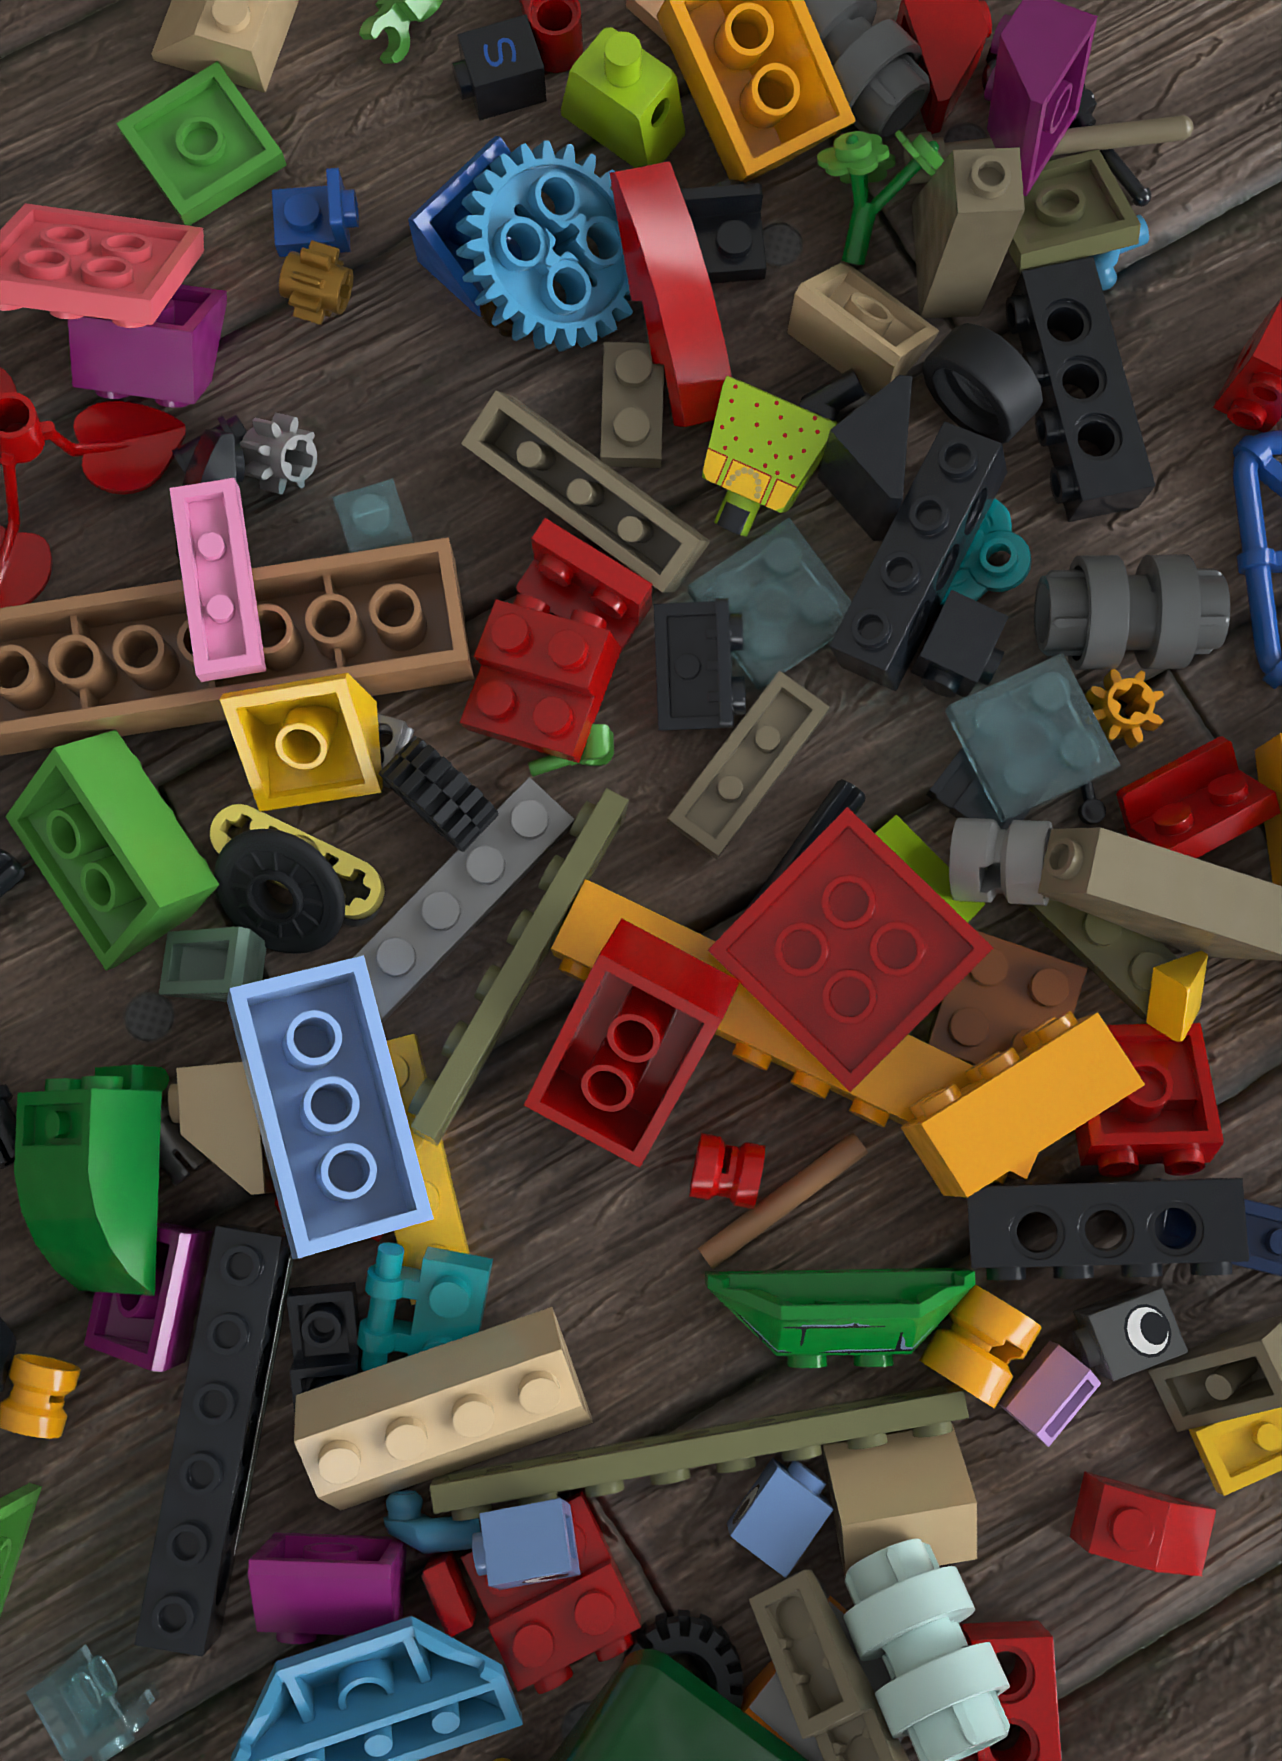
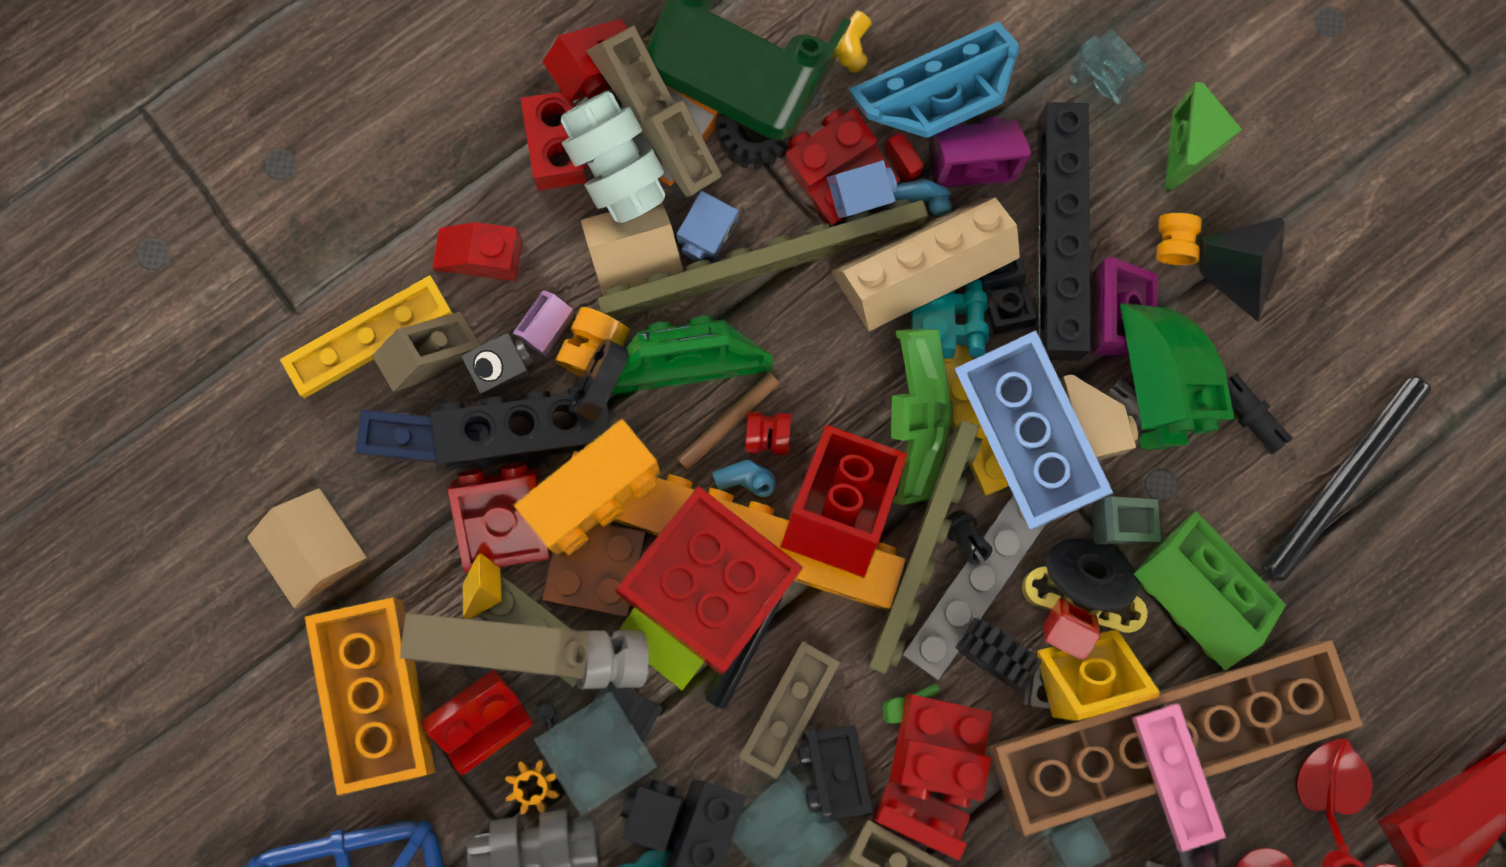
camera: 170 degrees right, 0 degrees up
(326, 814) = (1071, 629): none -> slope
(452, 973) = (968, 537): none -> black pin
(487, 1164) = (922, 414): none -> bright green plate
(762, 1112) = (747, 474): none -> dark azure arm
(984, 1279) = (598, 380): none -> black beam

